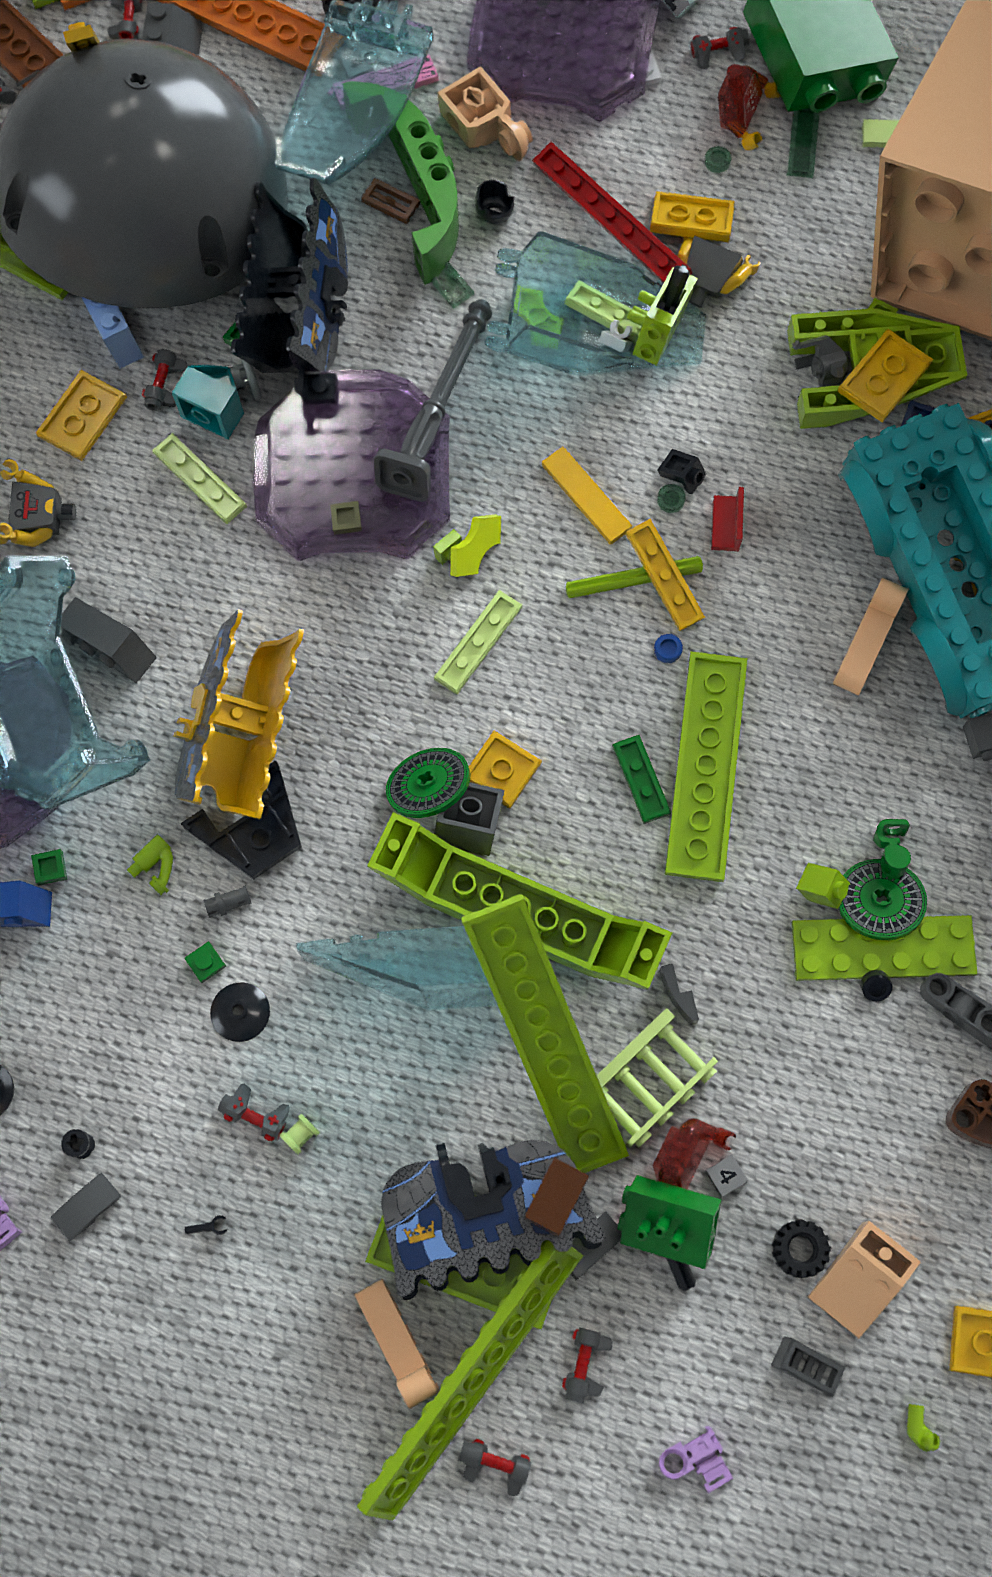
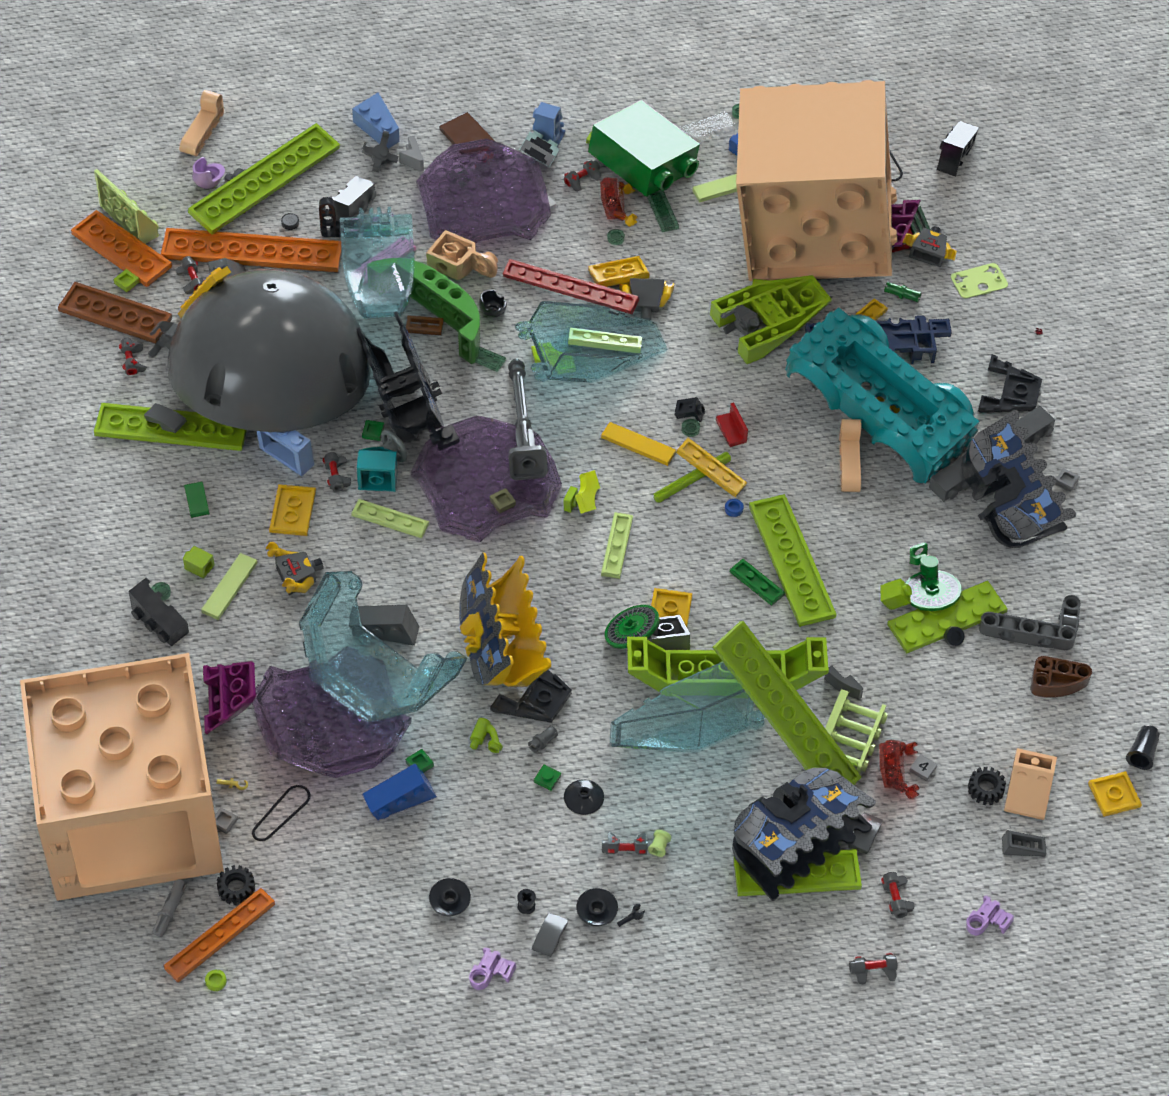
camera: 30 degrees left, 20 degrees down
(151, 1190) = (599, 899): none -> black dish
(397, 1344) = (783, 928): light nougat beam -> none
(468, 1383) = (836, 921): lime plate -> none
(556, 1197) = (838, 787): reddish brown panel -> none
(616, 340) = (611, 351): white tile -> none
(663, 316) = (636, 324): lime piece -> none
(670, 1225) = (907, 795): green piece -> none
(885, 375) = (784, 314): yellow tile -> none
(919, 1431) = (1102, 852): lime arm -> none

